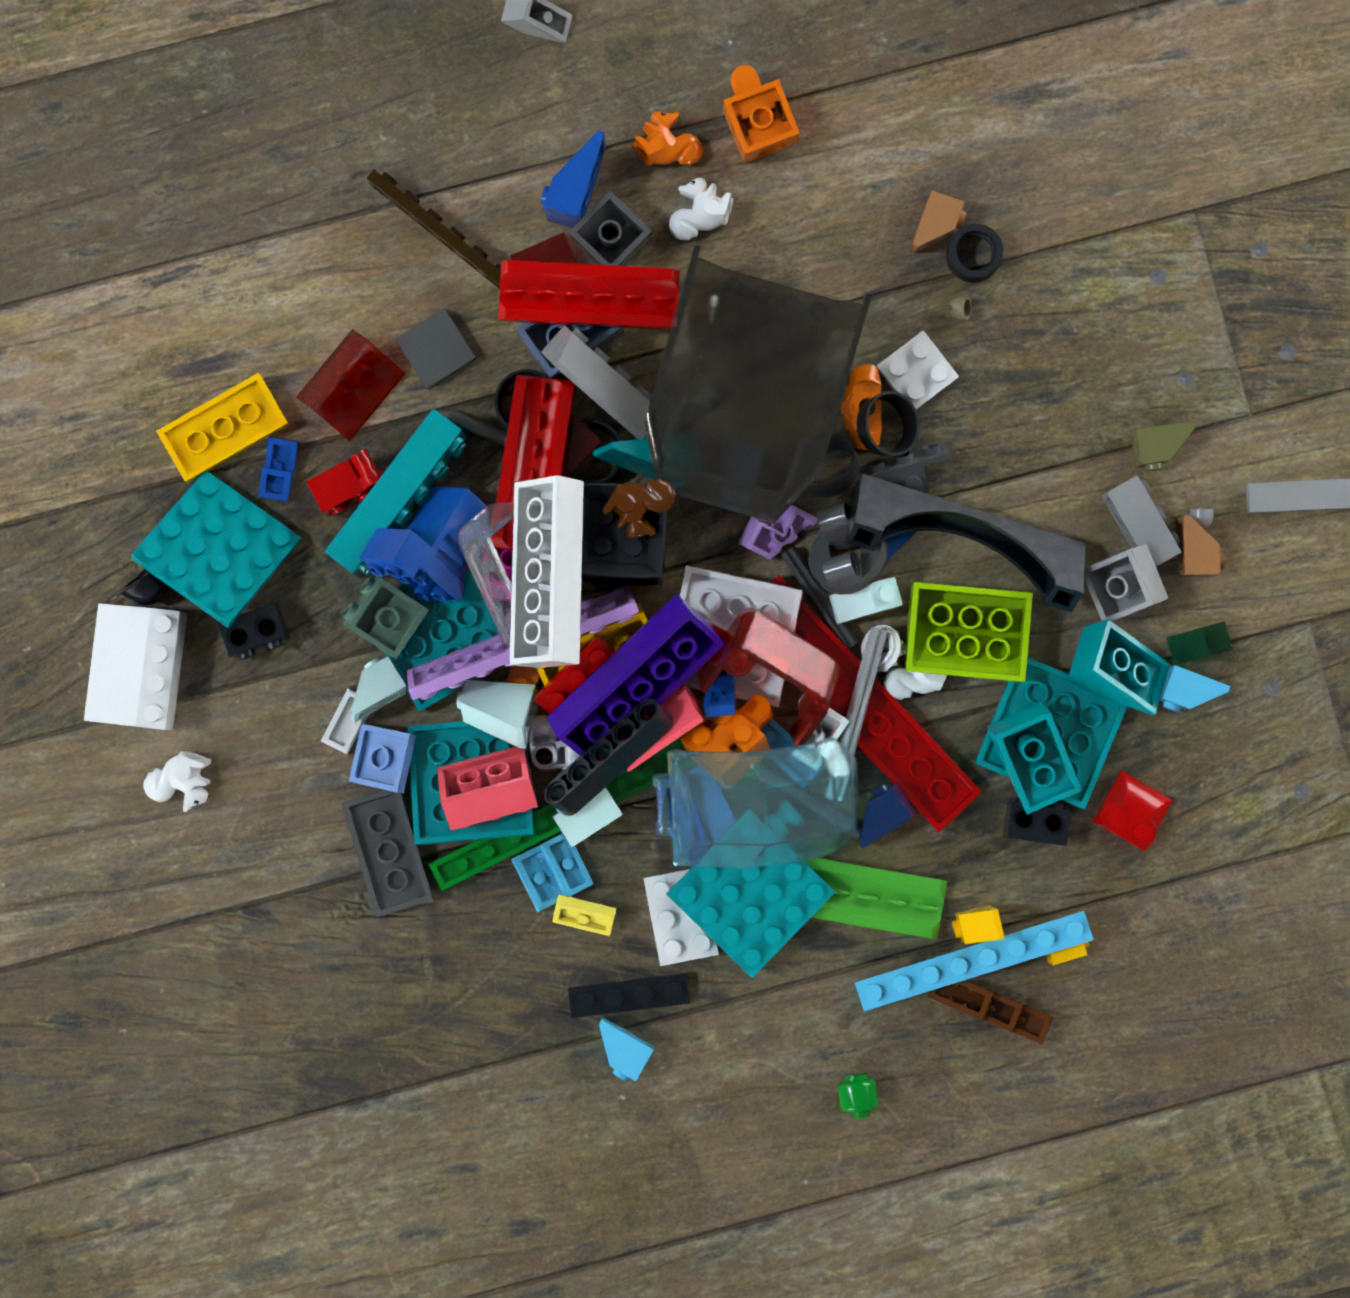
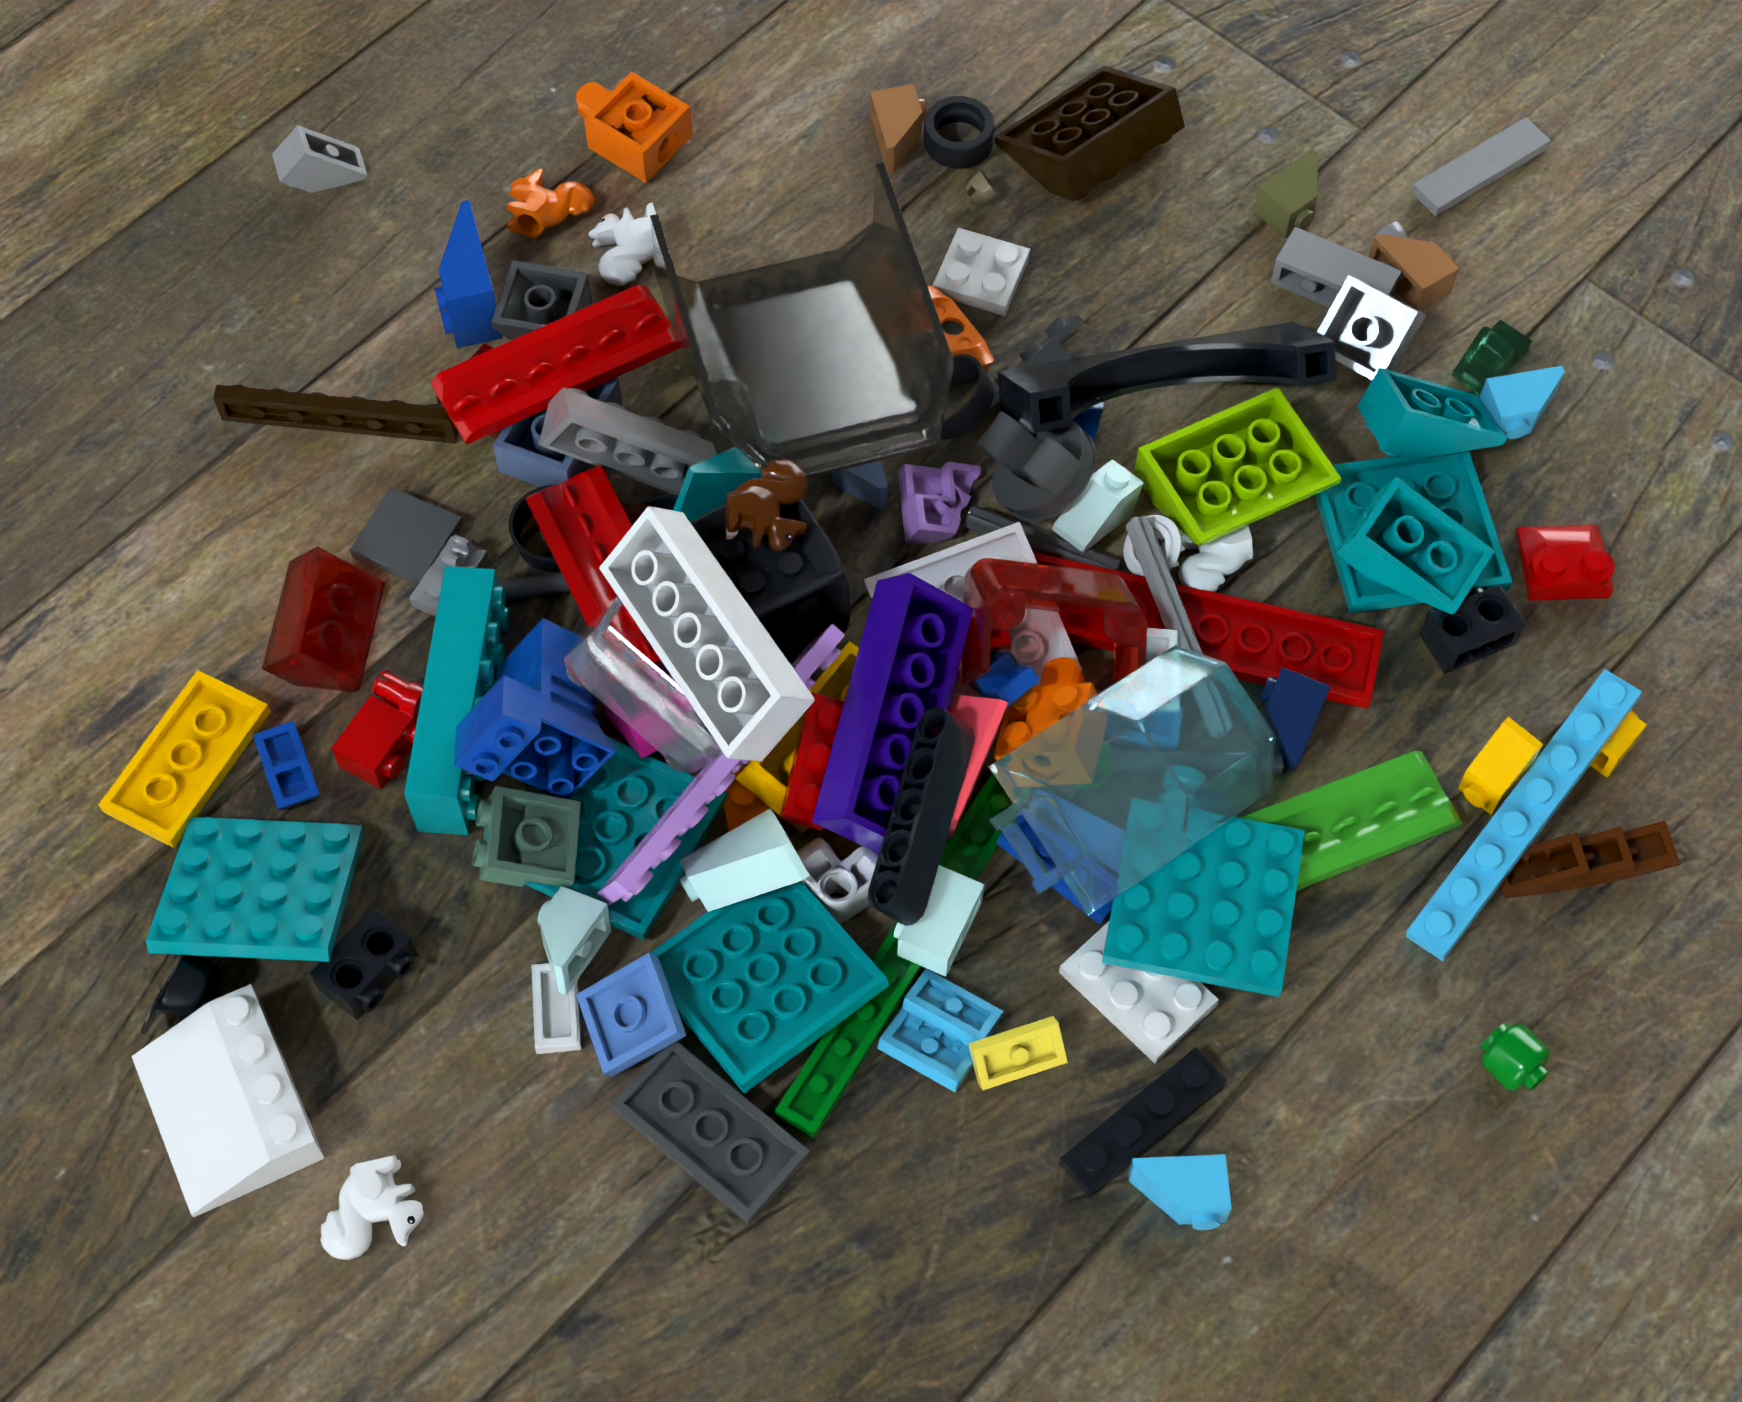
camera: 30 degrees left, 25 degrees down
(446, 393) = (455, 553): none -> light grey plate
(486, 787) = (793, 955): coral slope -> none
(909, 418) = (997, 308): black tyre -> none
(1063, 306) = (1093, 131): none -> dark brown slope

